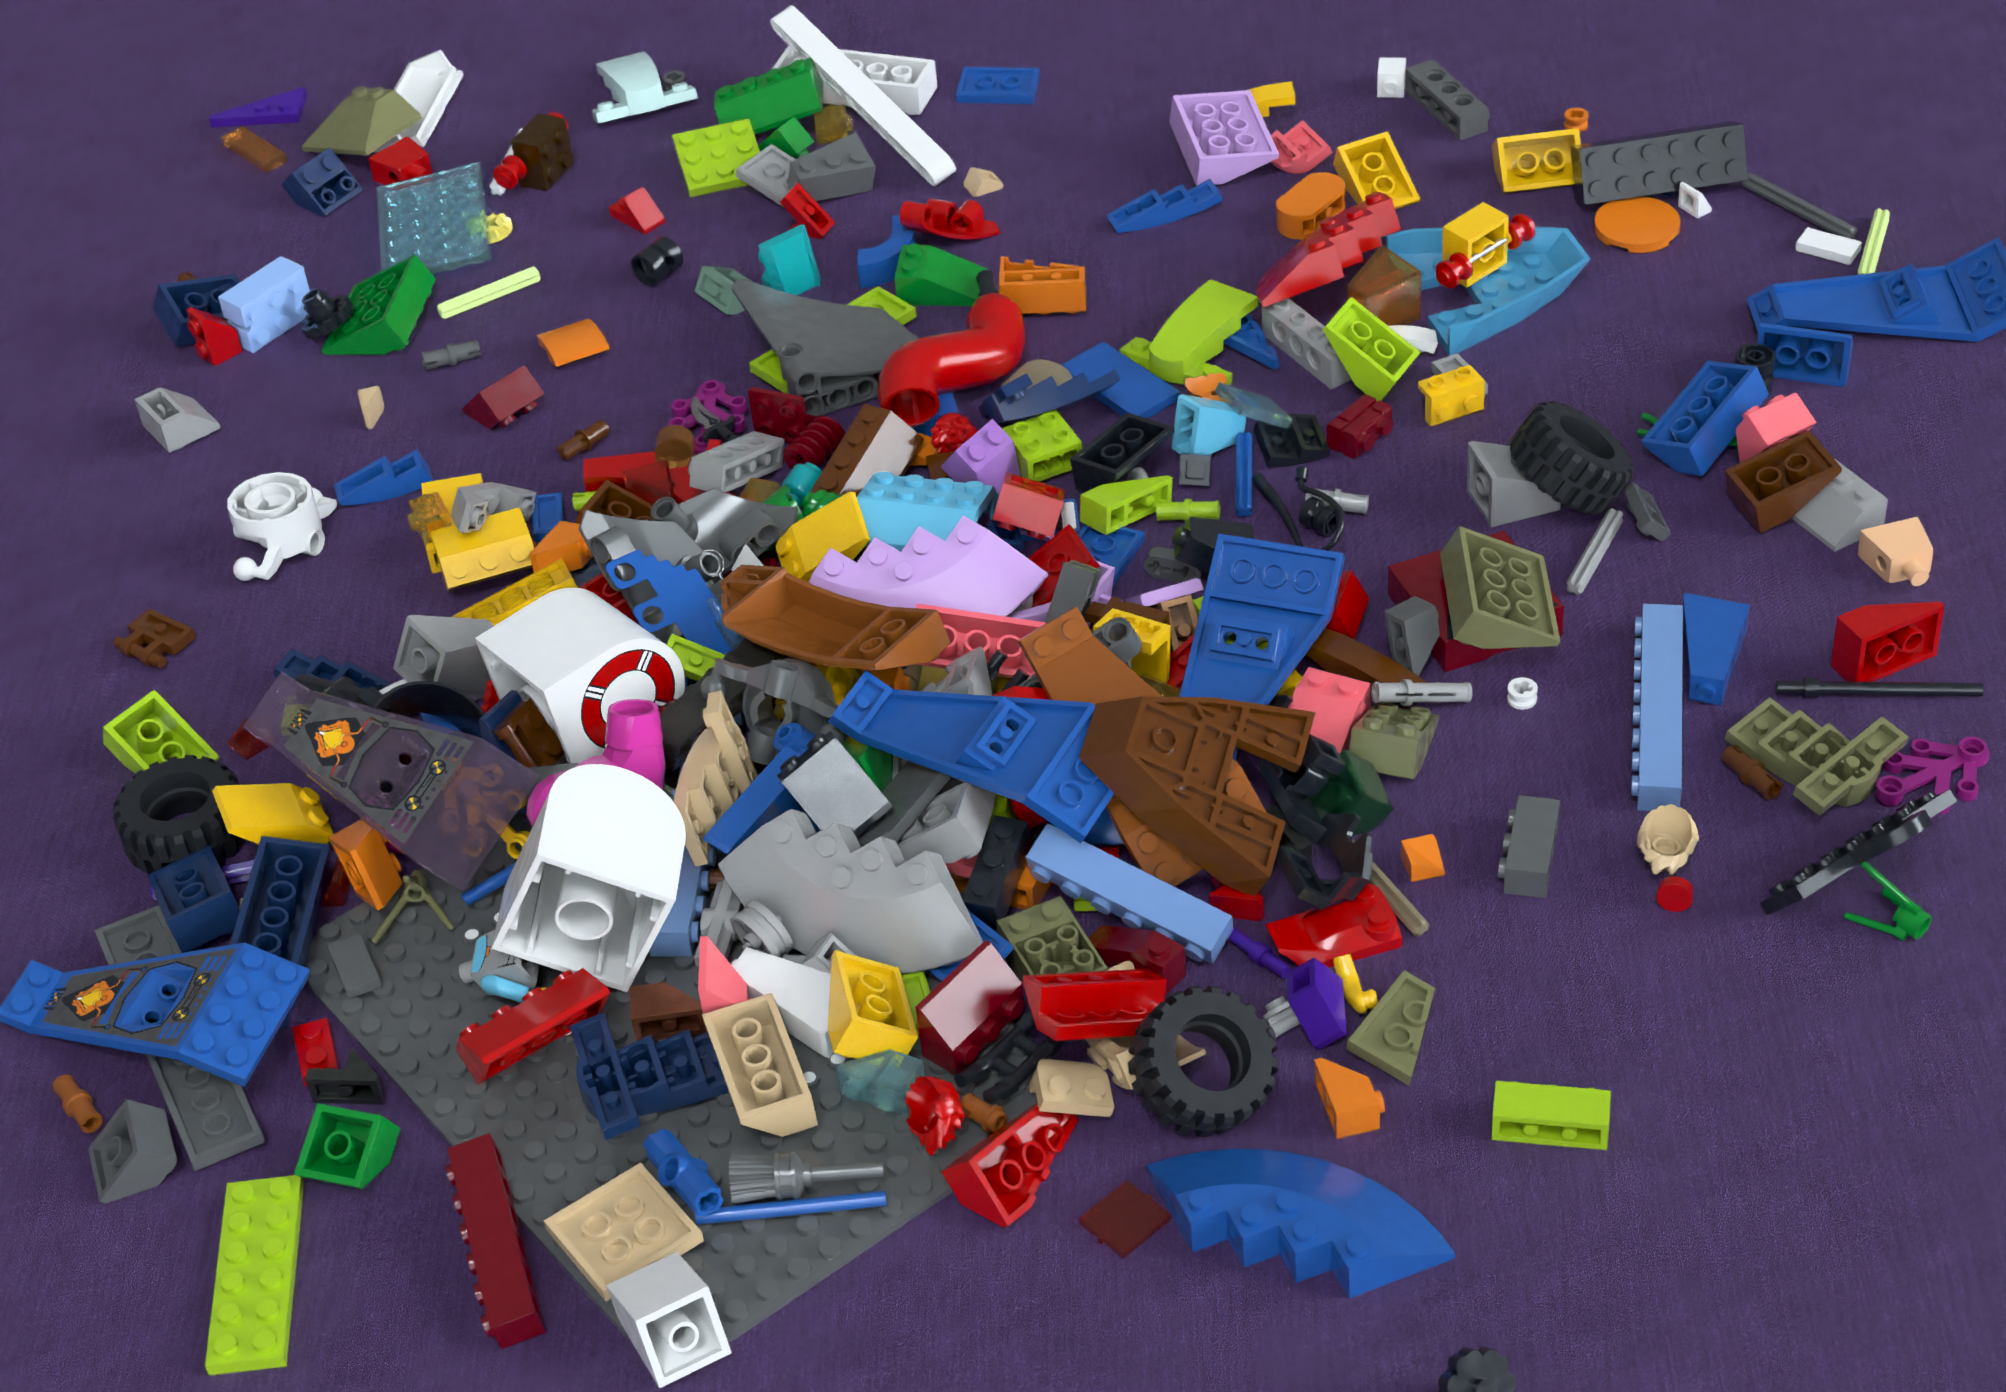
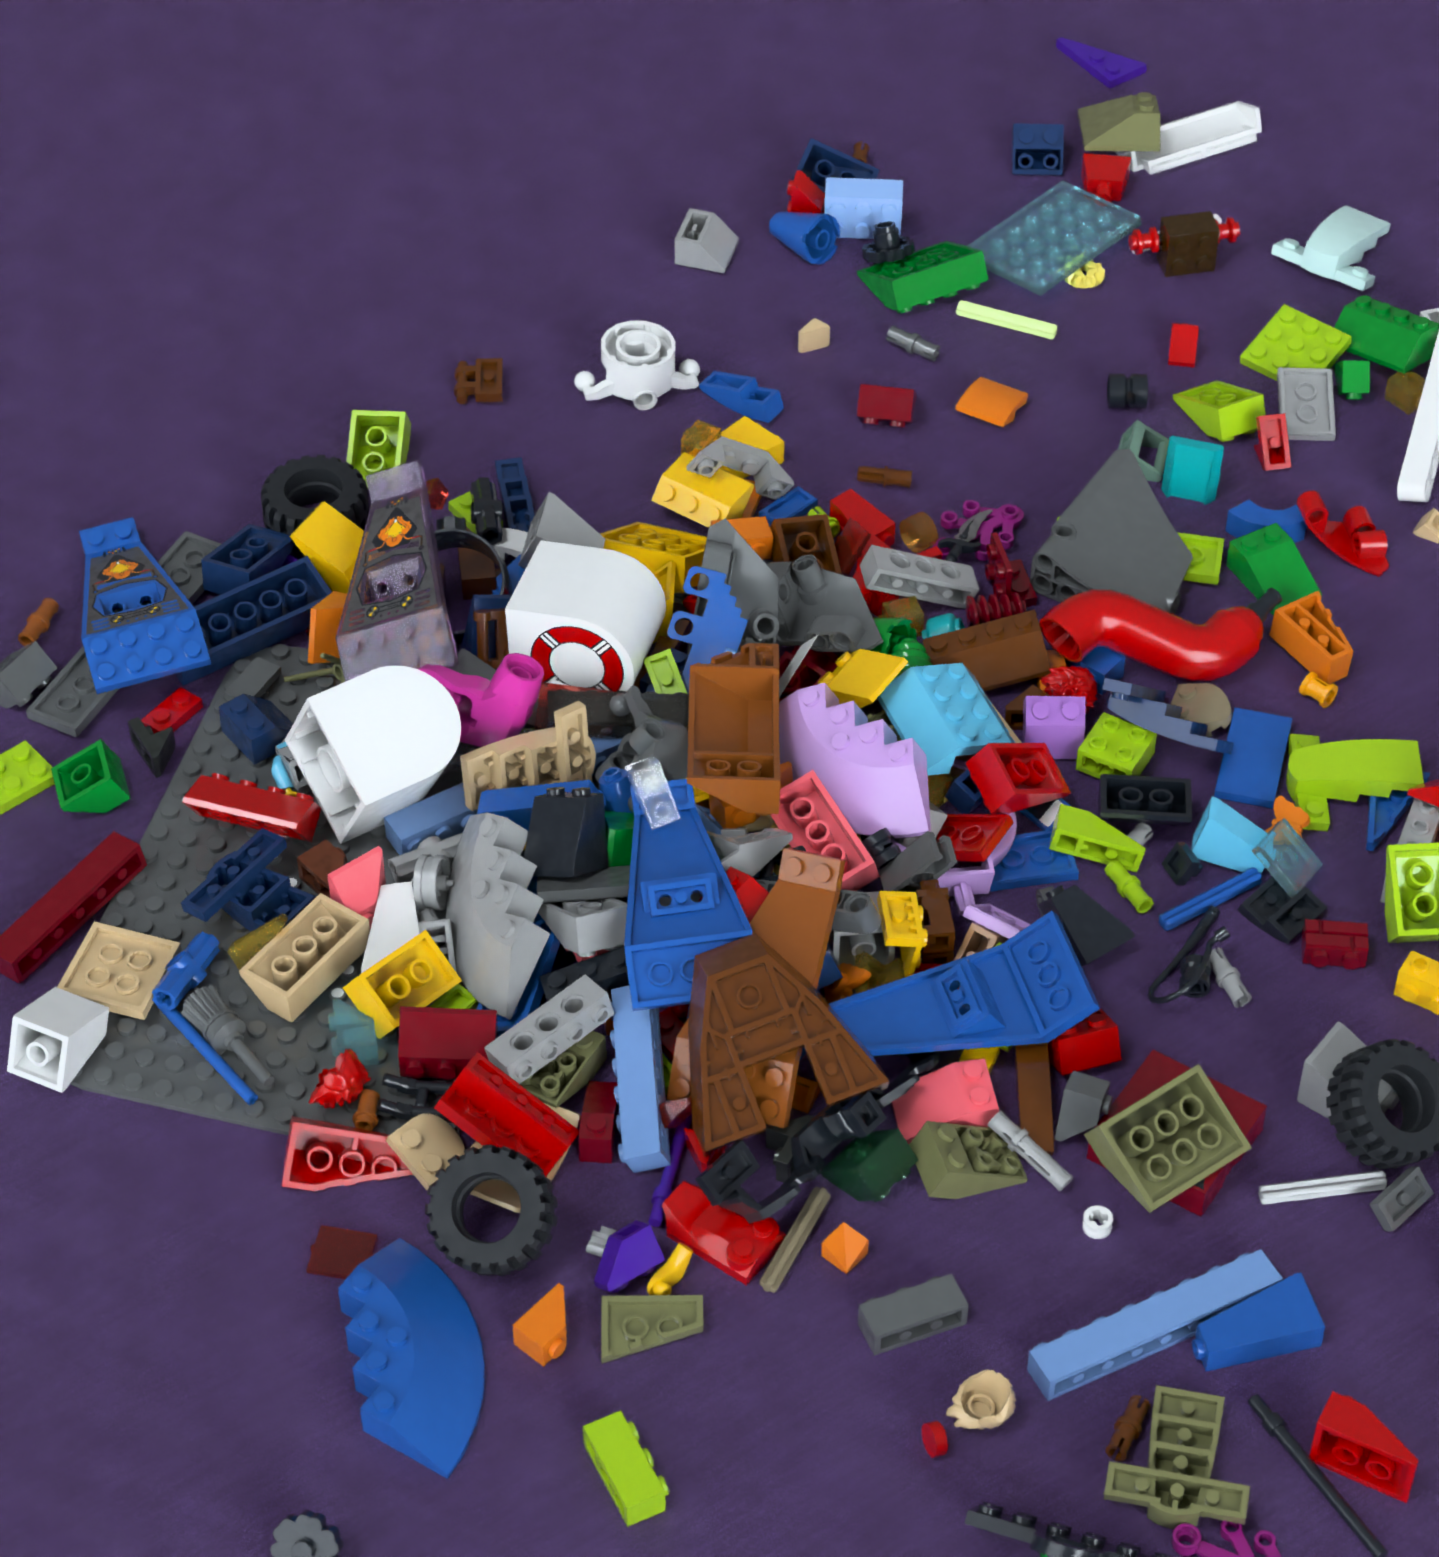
camera: 50 degrees right, 5 degrees up
(245, 353) = (807, 234): none -> blue cone
(254, 149) = (1048, 86): clear orange tile -> none
(420, 988) = (254, 726): none -> dark blue slope
(672, 78) = (1374, 264): dark grey bush -> none
(706, 1094) = (250, 944): none -> clear yellow slope
(736, 223) = (1222, 409): none -> lime slope
(834, 170) = (1336, 425): dark grey wedge -> none
(861, 696) = (653, 792): none -> clear slope
(1022, 609) = (881, 847): none -> black wheel
(1036, 914) = (550, 1029): none -> light grey brick
(1089, 314) = (1318, 689): none -> light orange bush
(1191, 880) = (675, 1112): none -> clear red slope

